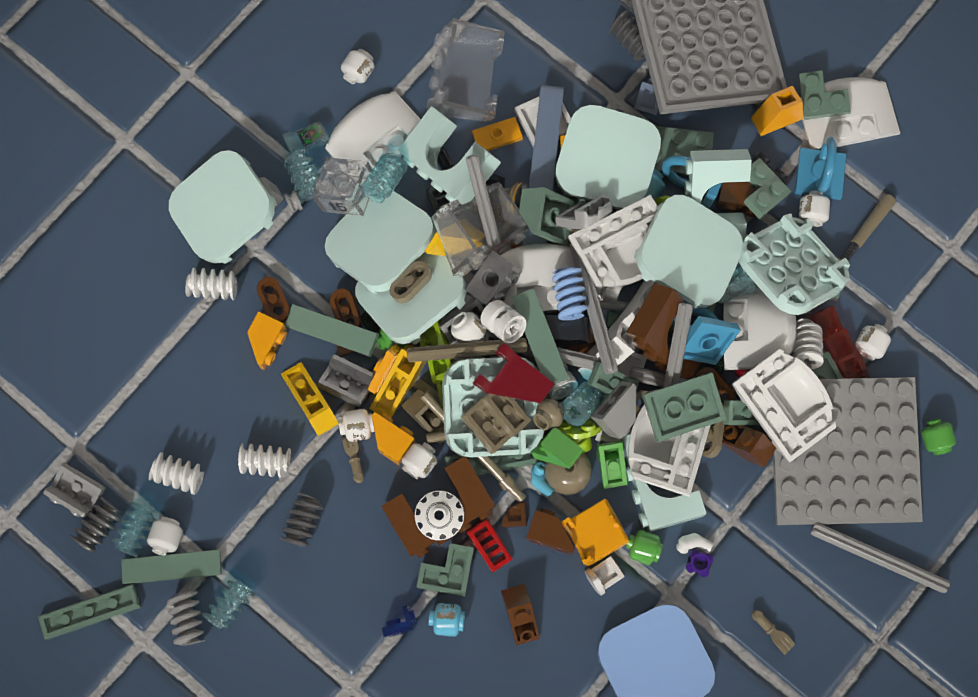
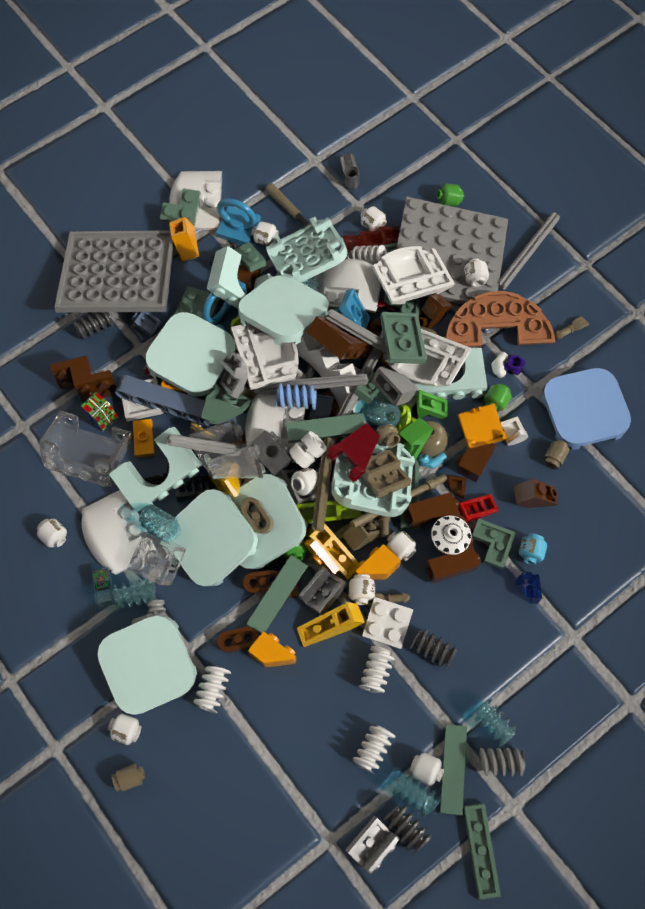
camera: 75 degrees left, 10 degrees down
(103, 221) = (128, 777): none -> dark tan brick
(153, 204) = (124, 729): none -> white head
(324, 463) = (387, 623): none -> white plate
(513, 75) = (99, 411): none -> piece
(551, 46) = (82, 376): none -> reddish brown bracket
(581, 633) = (556, 454): none -> dark tan brick
(767, 526) = (500, 310): none -> nougat plate
(816, 489) = (476, 272): none -> white head
(943, 296) = (350, 171): none -> flat silver piece

